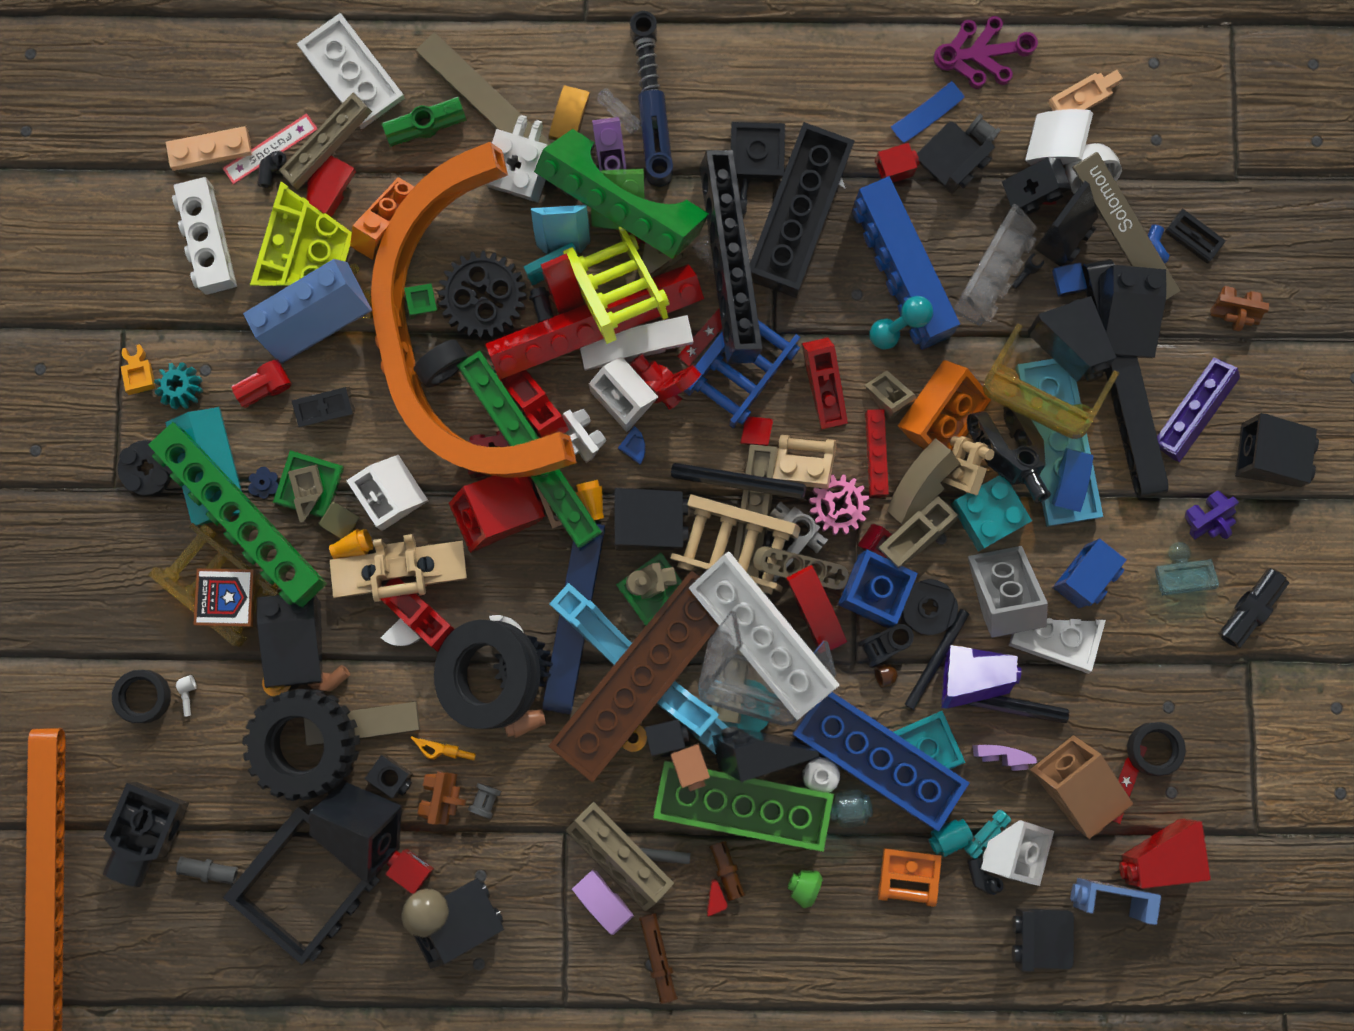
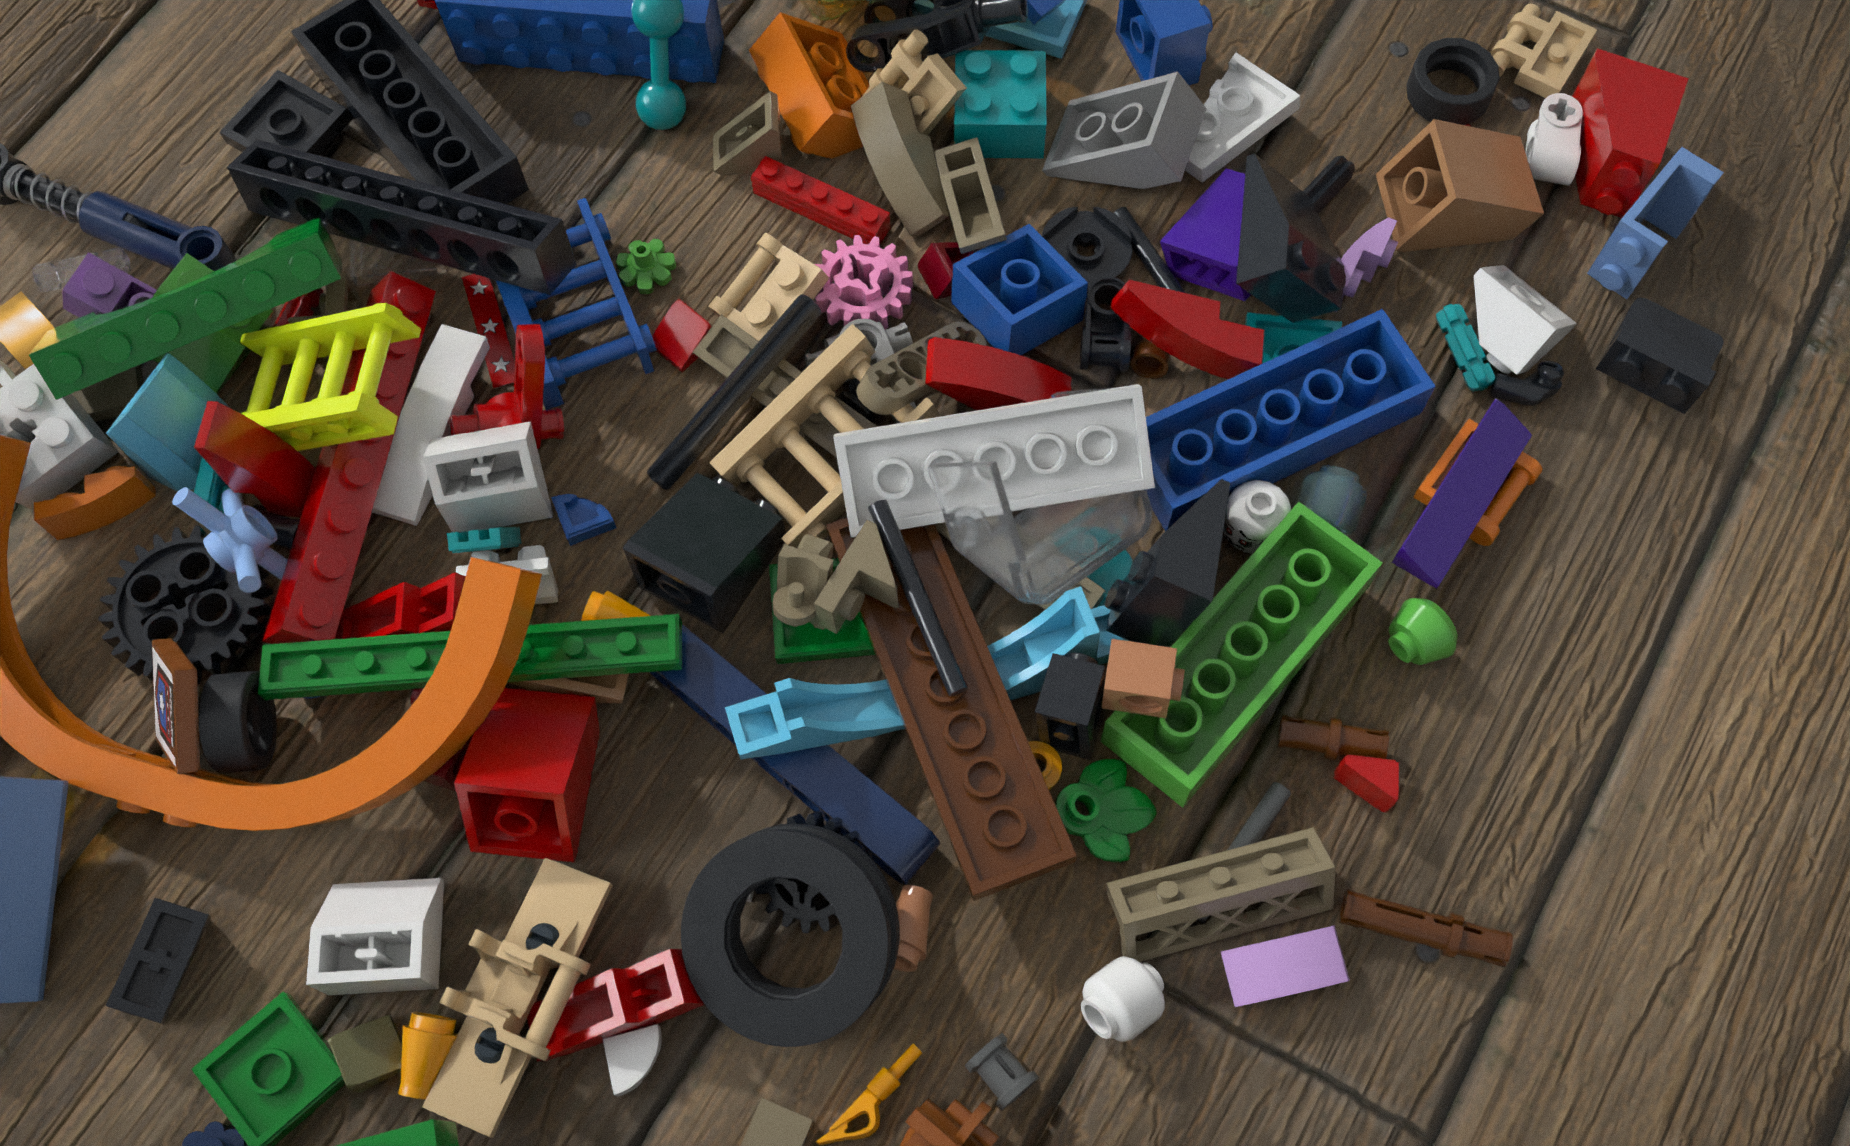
camera: 55 degrees left, 15 degrees down
(268, 380) = (46, 1038): red piece -> none
(306, 489) = (273, 1075): dark tan slope -> none
(419, 300) = (114, 701): green panel -> none
(430, 332) = (176, 705): none -> dark orange tile
(510, 218) = (106, 499): none -> orange slope
(520, 302) = (237, 538): none -> light blue bar
(546, 837) = (1123, 999): none -> white head
(588, 409) = (484, 539): none -> teal tile
(633, 784) = (1112, 809): none -> green plate
(673, 639) = (918, 598): none -> black bar
(674, 604) = (860, 572): none -> dark tan slope
(788, 392) = (645, 265): none -> bright green plant
(825, 382) = (671, 208): red slope -> none
(892, 873) = (1463, 496): none -> dark purple slope
(904, 691) = (1189, 329): none -> red slope
(950, 837) = (1452, 398): teal brick -> none
(983, 712) = (1285, 248): none -> black slope
(1141, 823) = (1554, 140): none -> white piece
(1209, 797) = (1554, 56): none -> tan plate

